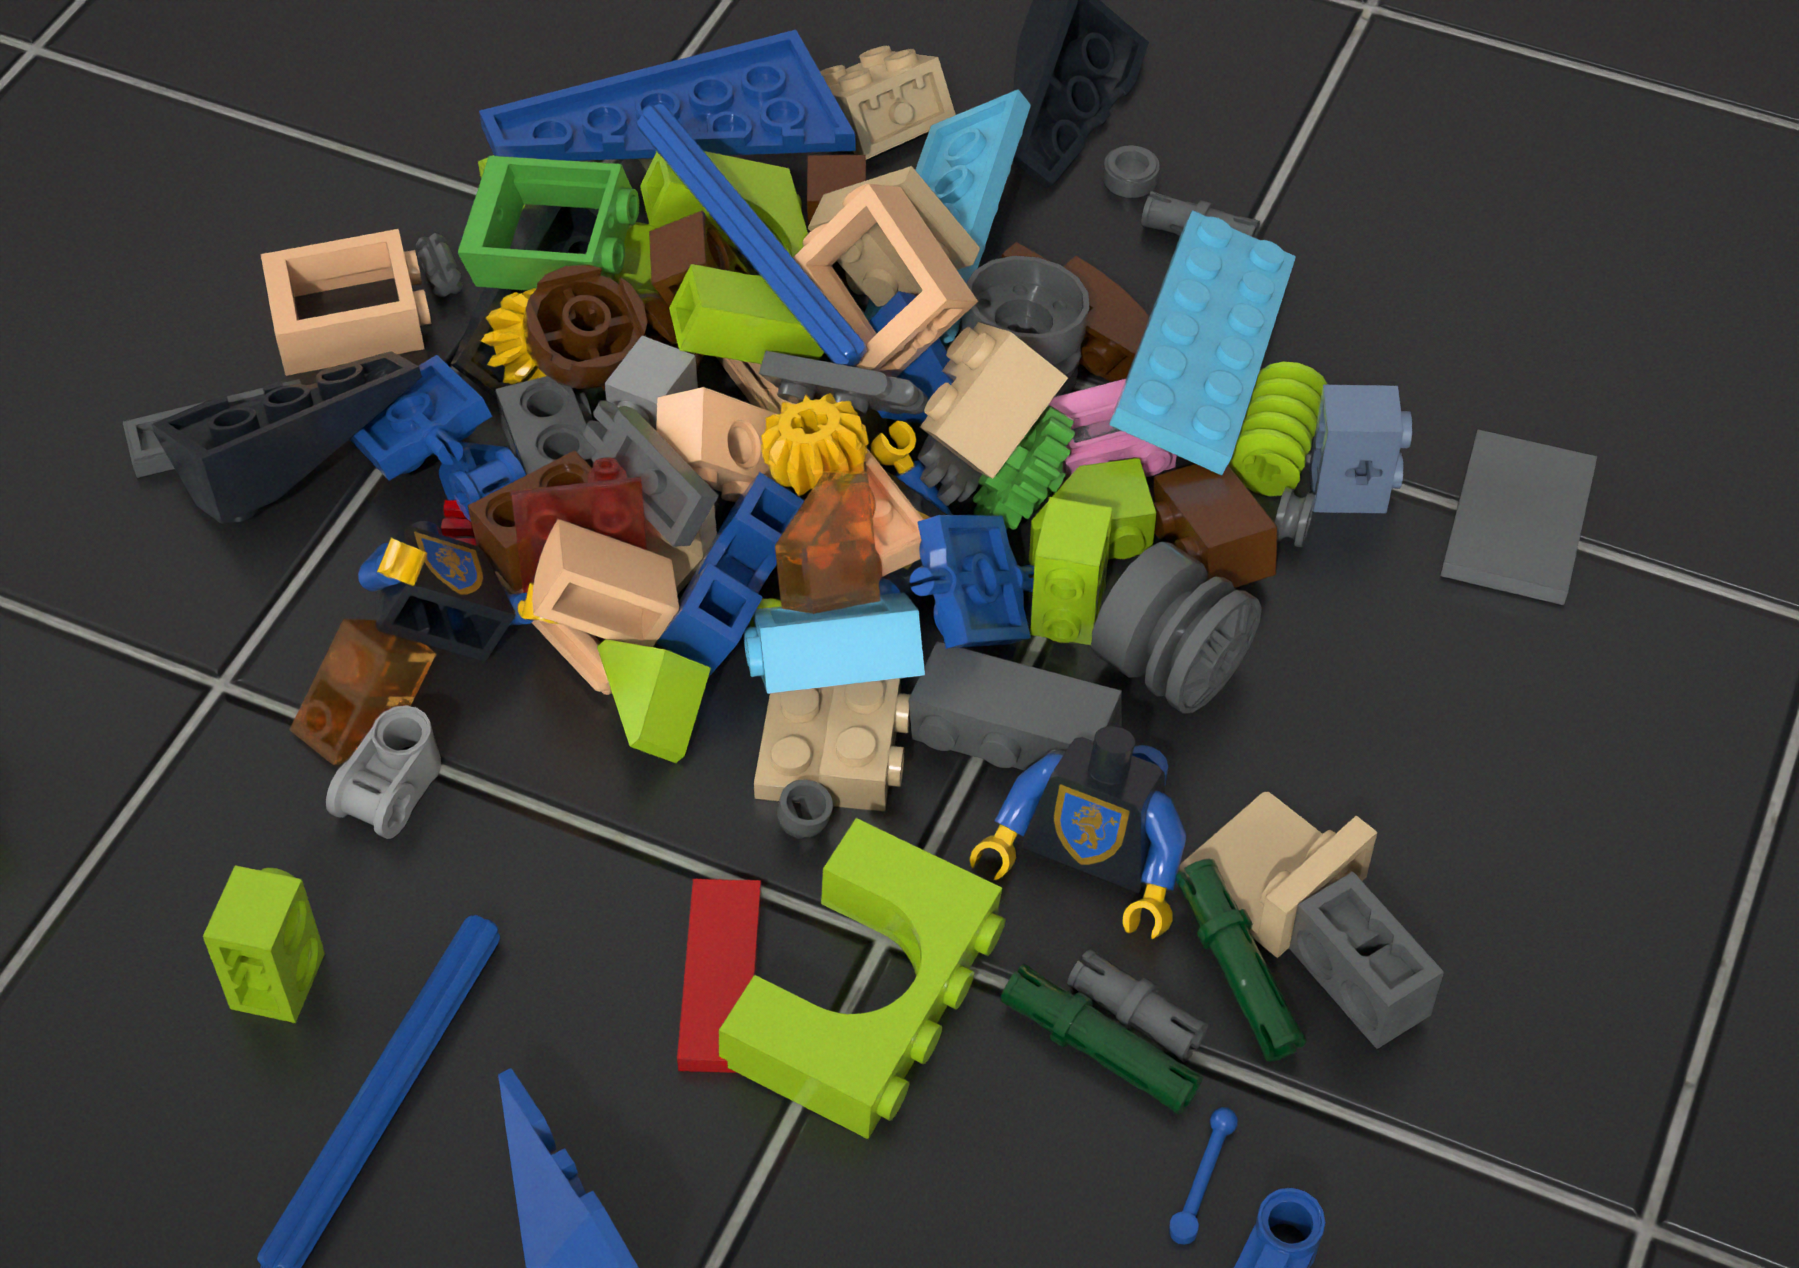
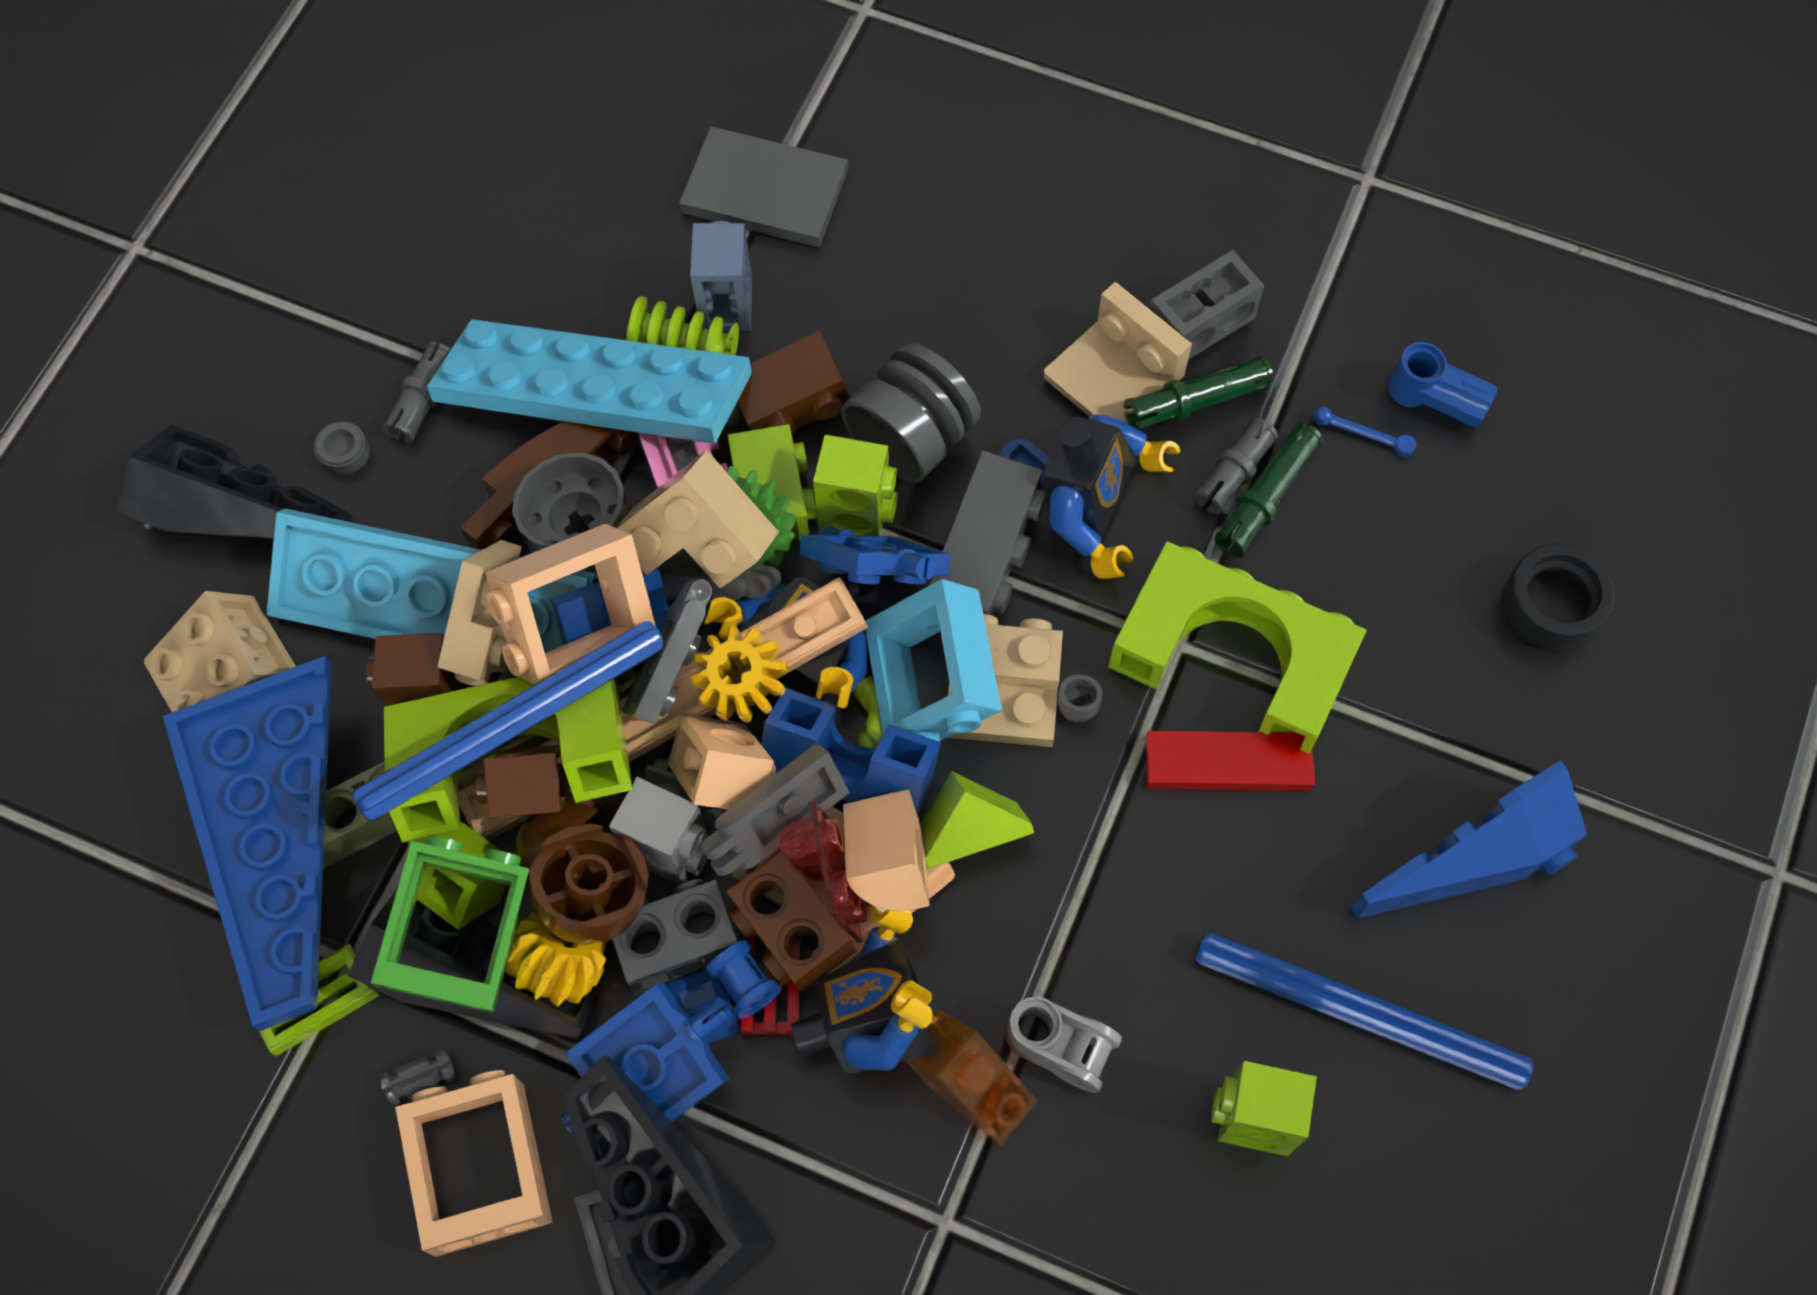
camera: 90 degrees left, 15 degrees up
(829, 547) = (864, 654): clear orange slope -> none
(1294, 516) = (771, 333): dark grey bush -> none

